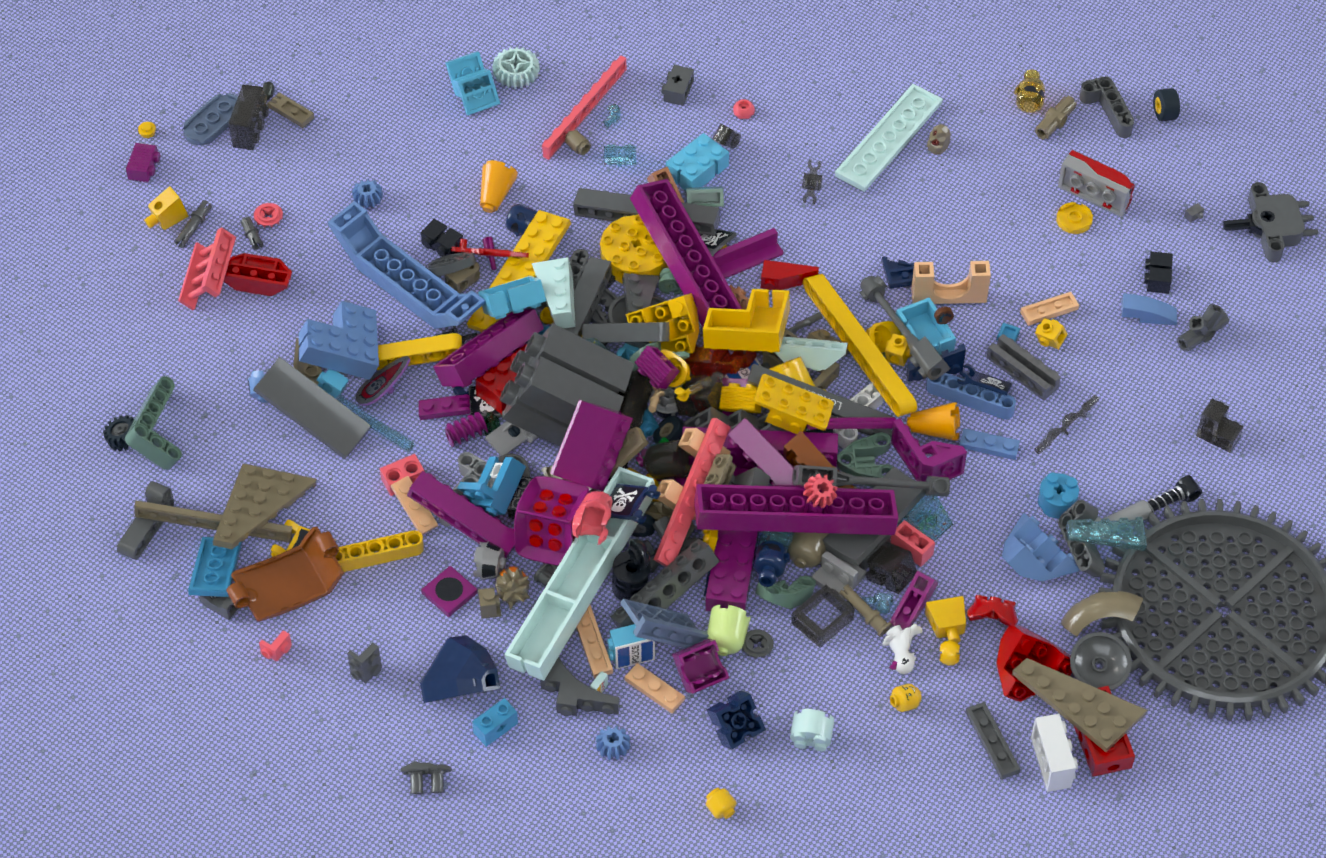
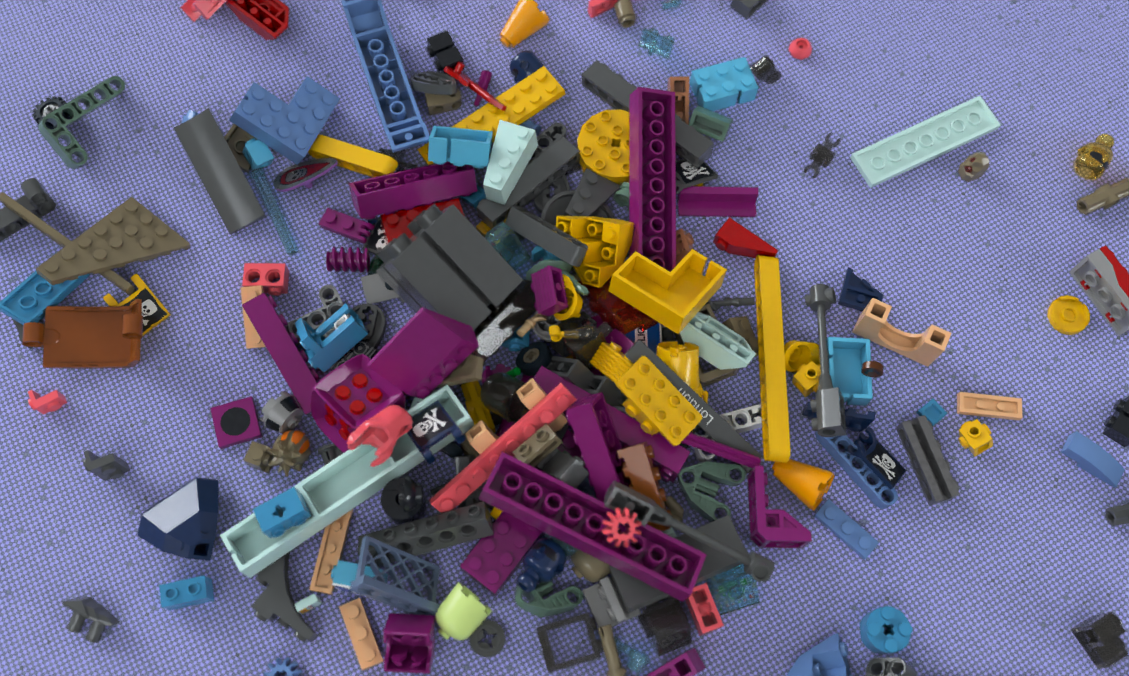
camera: 25 degrees right, 15 degrees up
(386, 552) = (184, 343): yellow beam -> none
(548, 609) = (270, 513): none -> dark azure brick
(1067, 420) = (938, 546): clear smoke piece -> none

